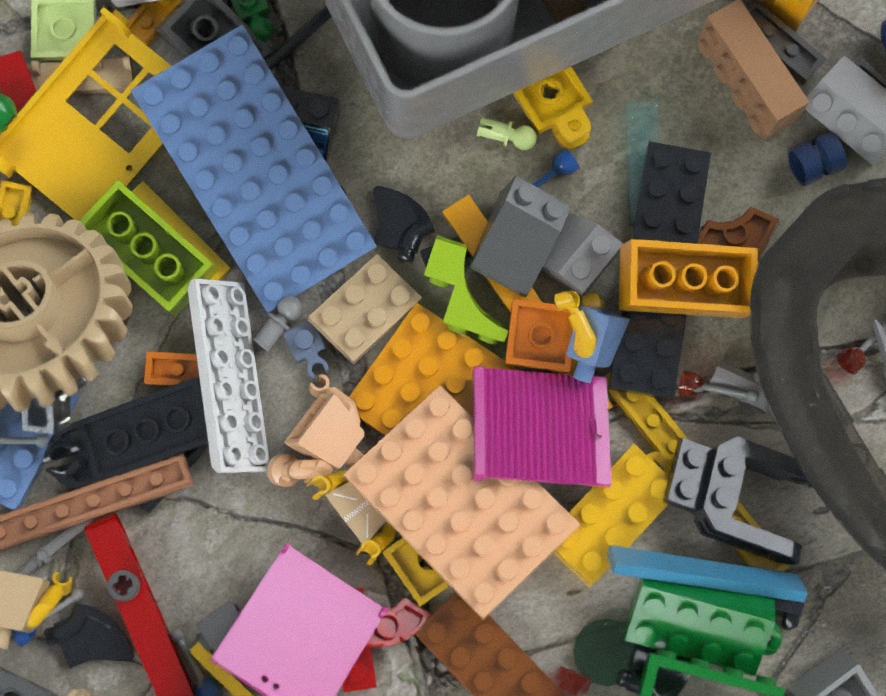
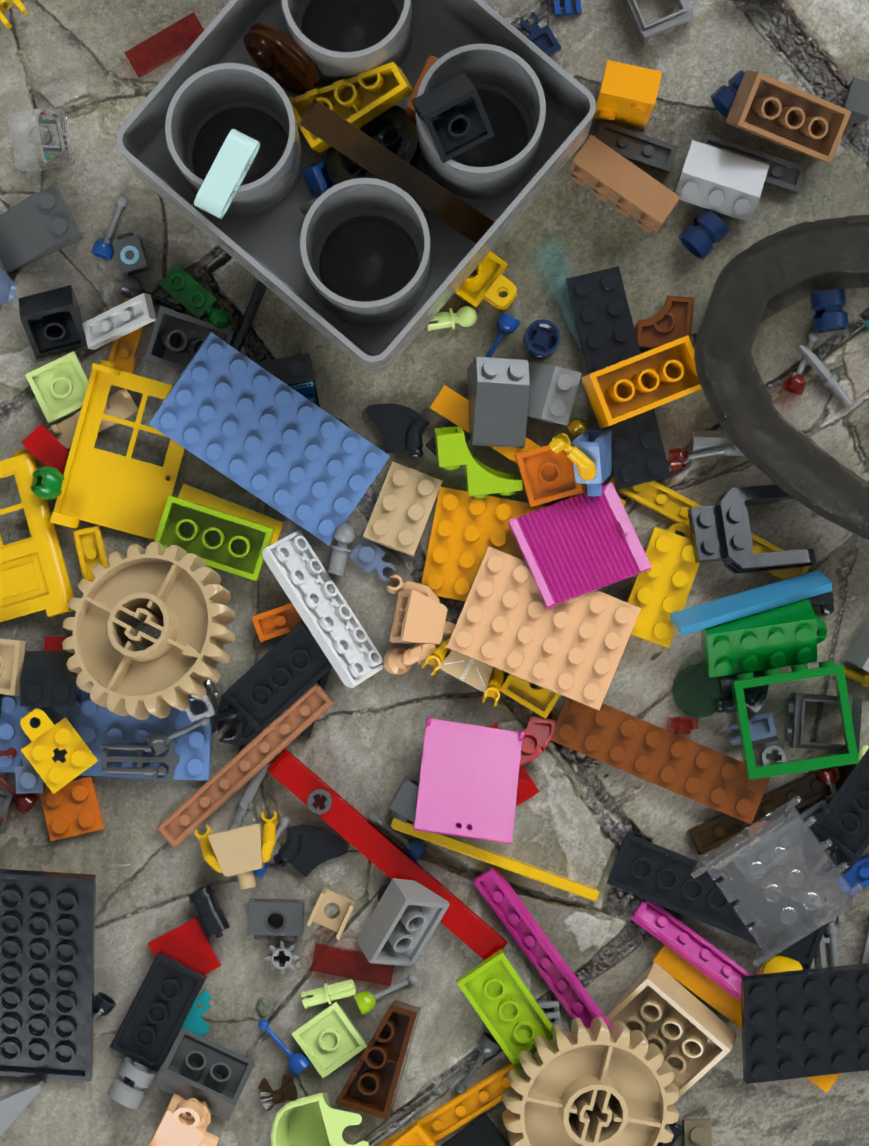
camera: 20 degrees left, 10 degrees up
(595, 193) = (541, 339): none -> dark blue wheel

